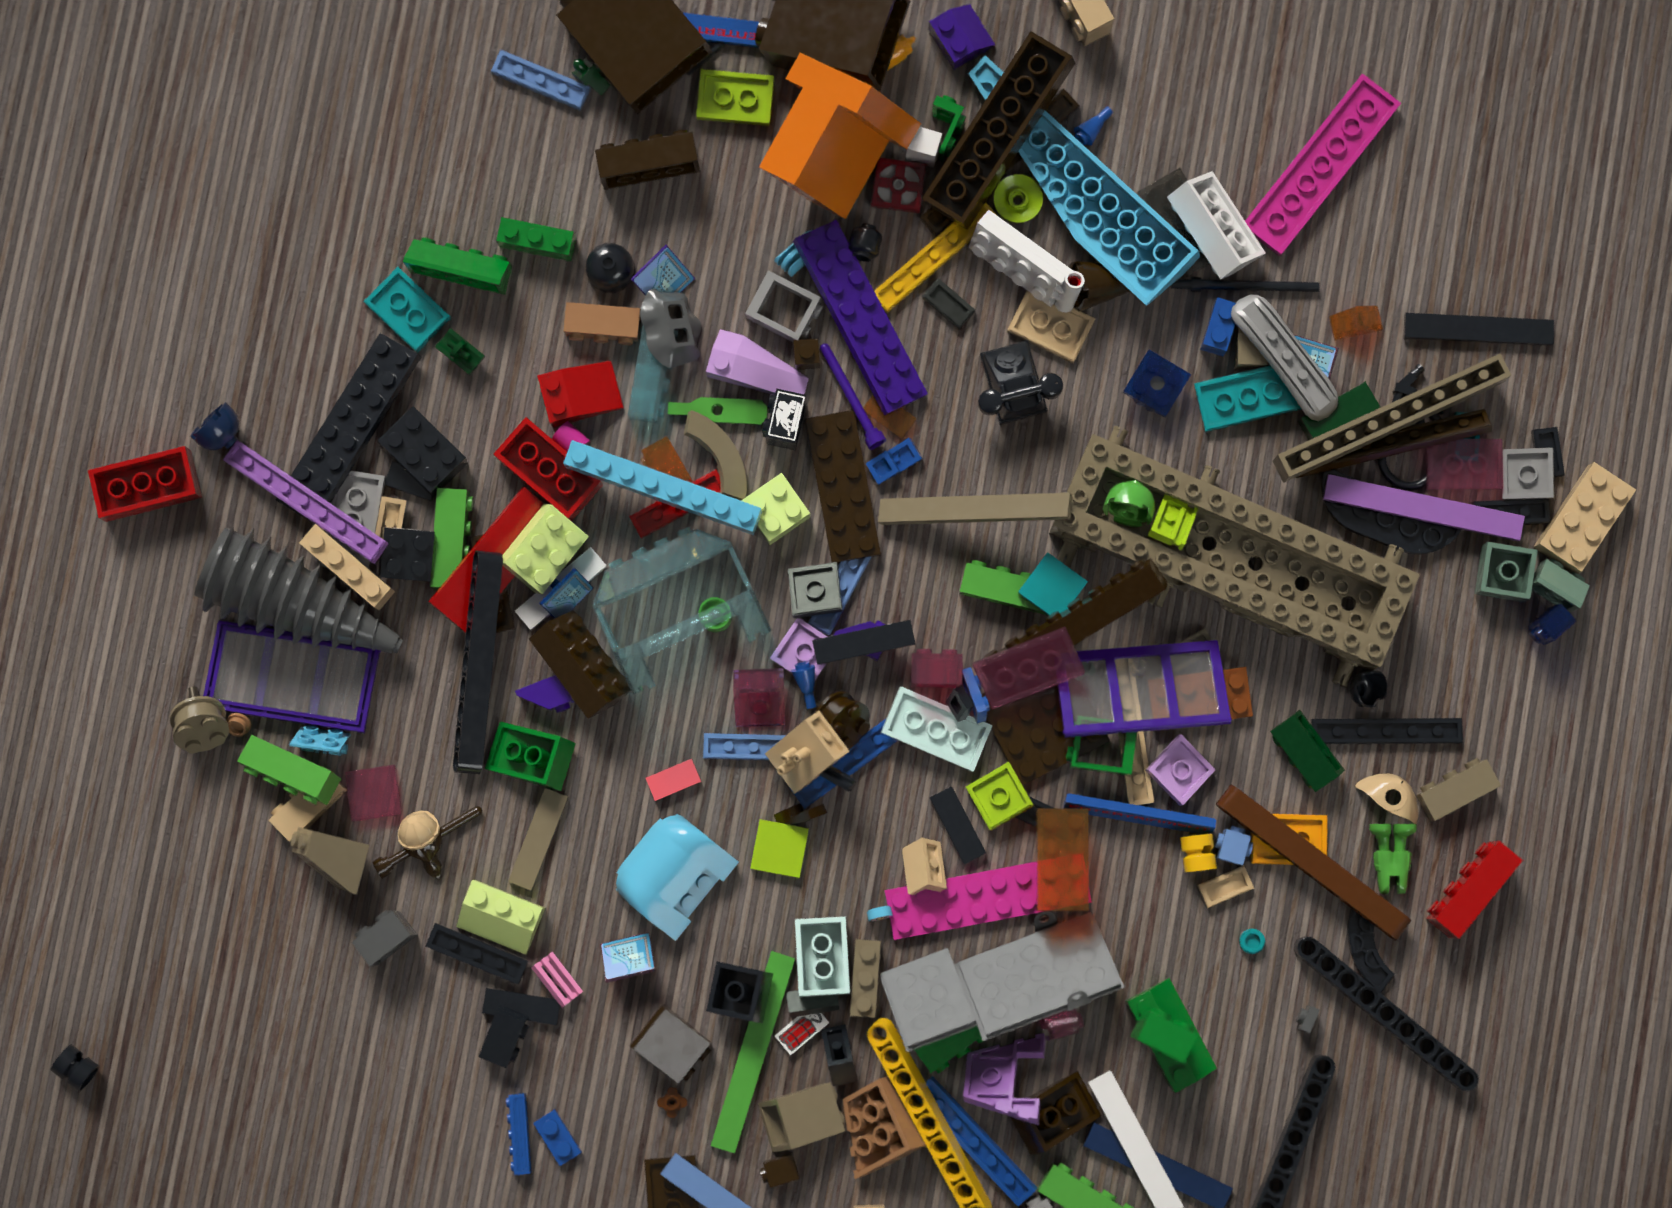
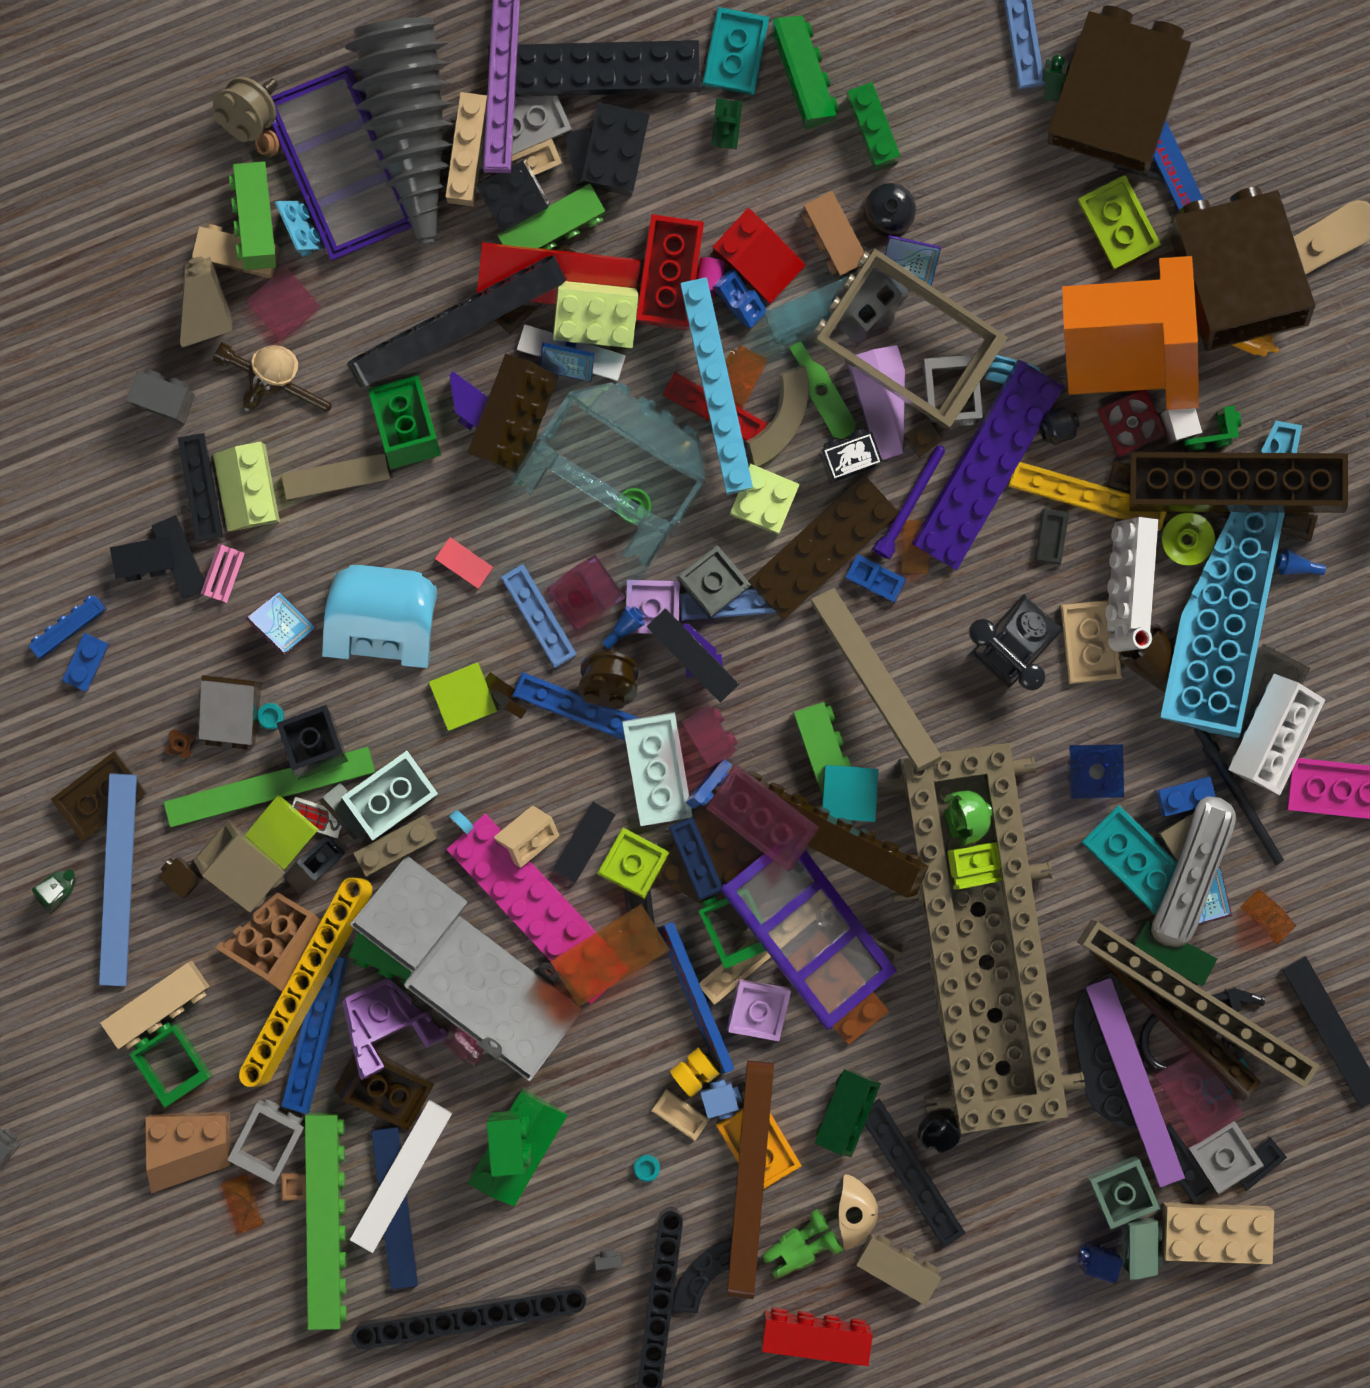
camera: 55 degrees right, 5 degrees up
(605, 429) = (741, 302): none -> blue slope
(647, 159) = (1009, 180): dark brown brick -> none
(696, 1014) = (269, 715): none -> teal tile
(781, 281) = (972, 374): none -> dark tan window
(796, 1064) = (281, 832): none -> lime tile
(810, 753) = (562, 670): tan piece -> none
(960, 35) = (1307, 391): dark purple slope -> none
(960, 703) = (692, 776): black plate -> none
(1027, 743) = (696, 858): none -> dark blue tile

